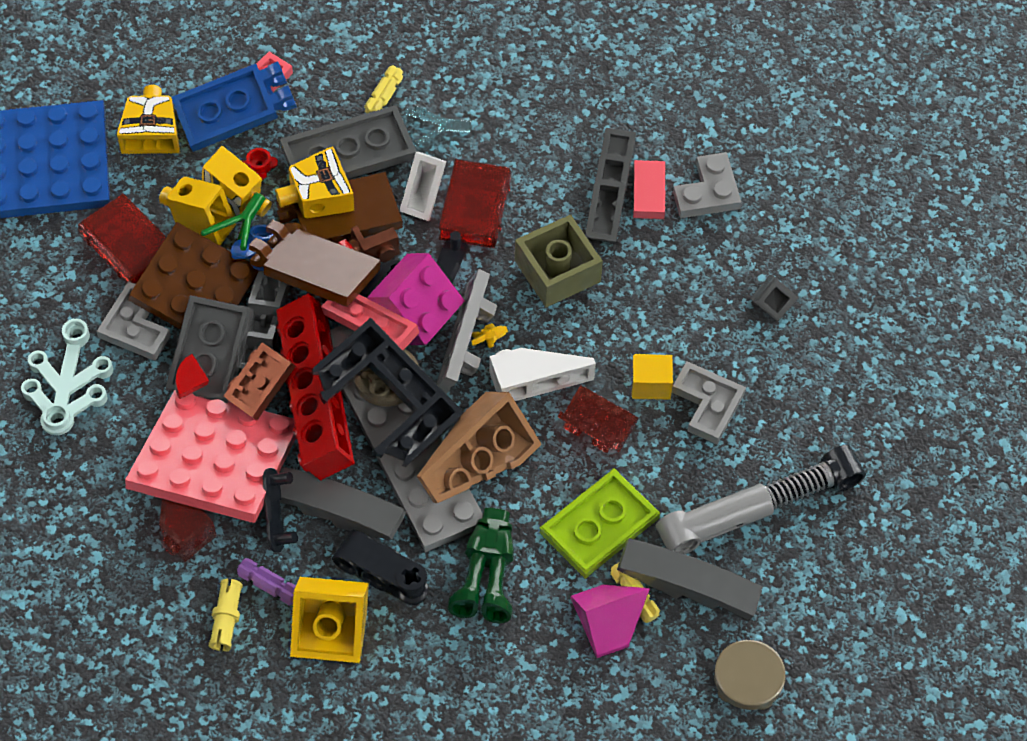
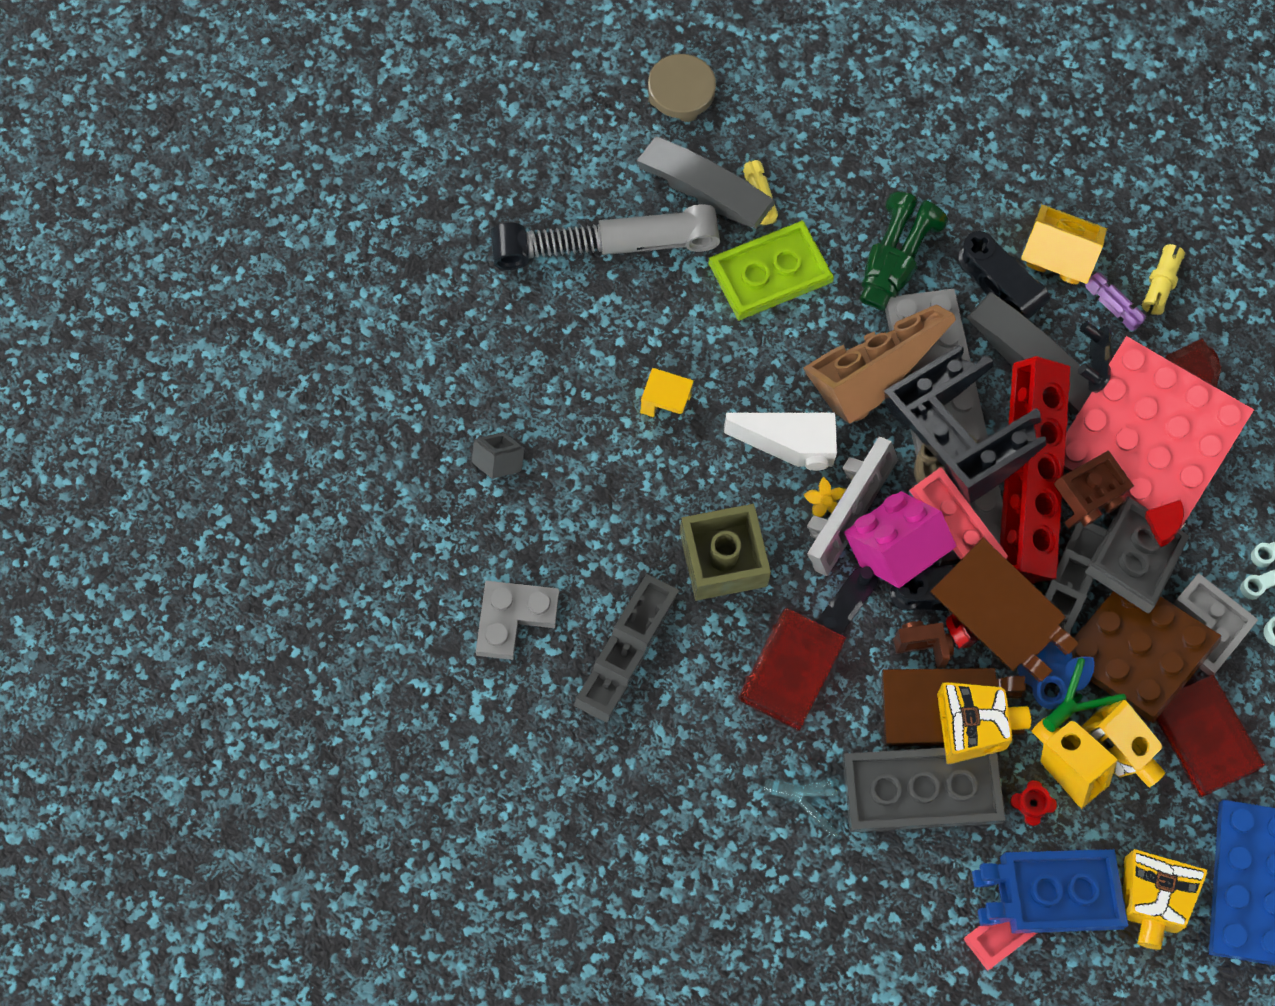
camera: 165 degrees left, 10 degrees up
(384, 89) = (858, 866): light yellow axle -> none
(422, 186) = (849, 700): white slope -> none
(599, 419) = (742, 363): clear red bracket -> none
(609, 615) = (795, 178): dark pink slope -> none
(649, 189) = (582, 634): coral tile -> none
(714, 395) = (607, 357): light grey plate -> none

